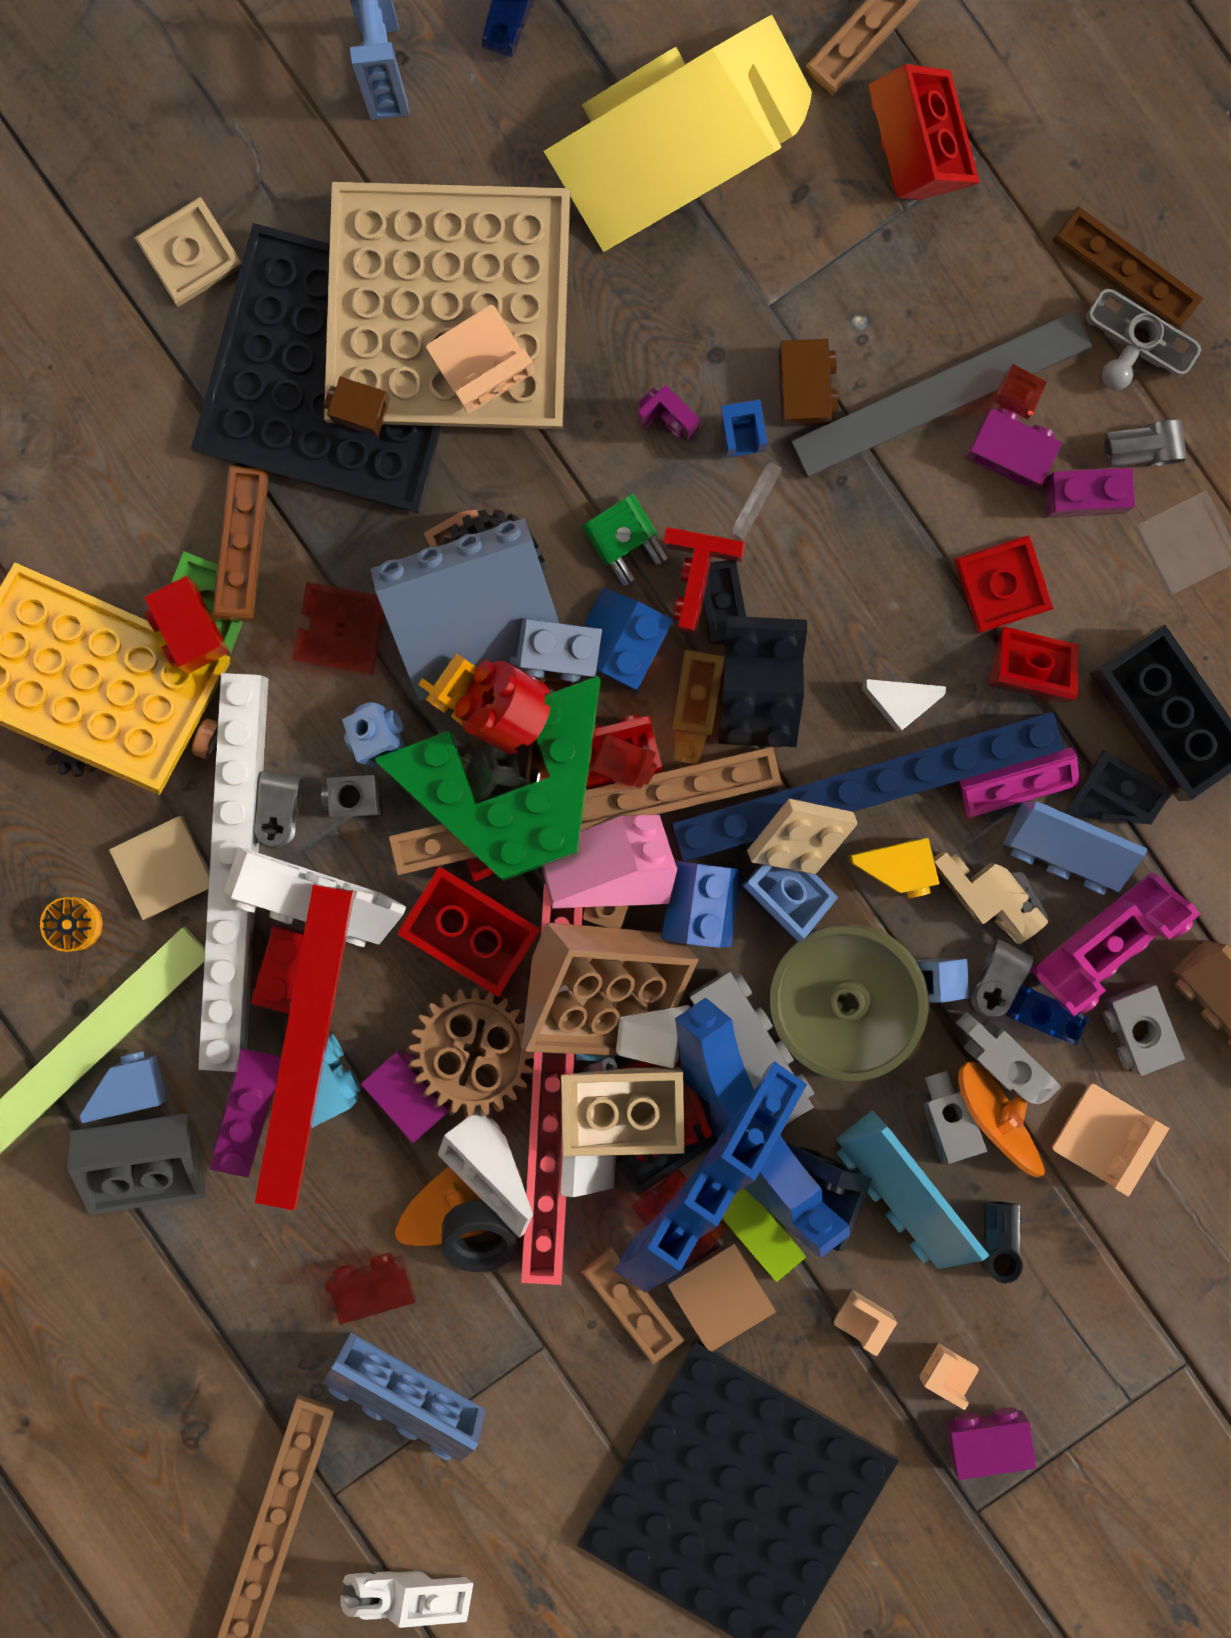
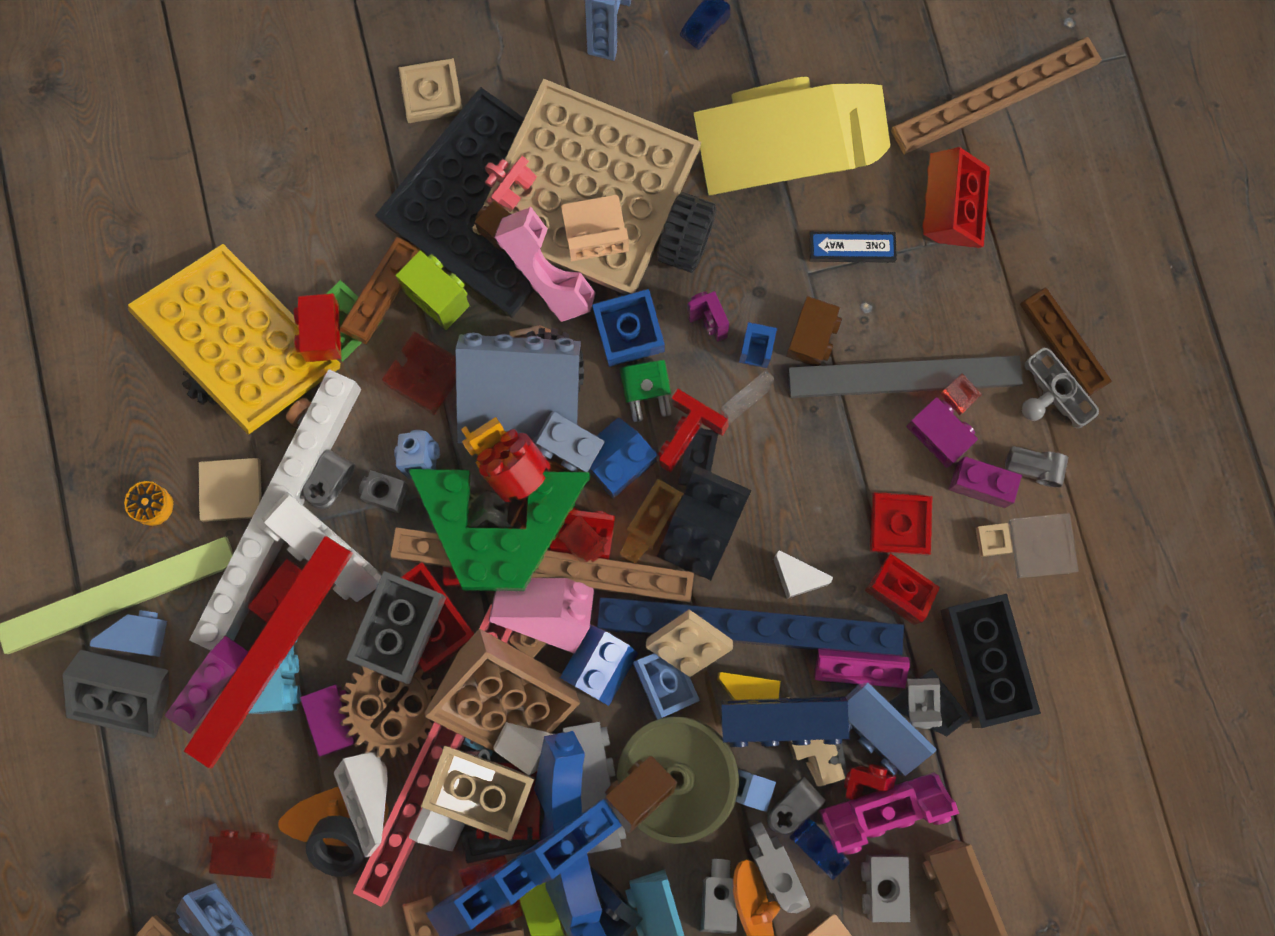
camera: 20 degrees right, 10 degrees down
(307, 518) = (433, 289): none -> lime brick
(352, 326) = (518, 173): none -> coral hips
(445, 960) = (396, 628): none -> dark grey brick
(472, 456) = (563, 291): none -> bright pink arch
(572, 470) = (629, 328): none -> blue brick
(597, 317) = (686, 232): none -> black tyre
(813, 249) = (852, 247): none -> tile
(813, 1037) = (640, 792): none -> reddish brown brick
(952, 884) = (785, 720): none -> dark blue brick
(1078, 908) = (872, 776): none -> red bracket
(1111, 796) = (924, 703): none -> light grey bracket
(1124, 560) = (993, 540): none -> tan plate

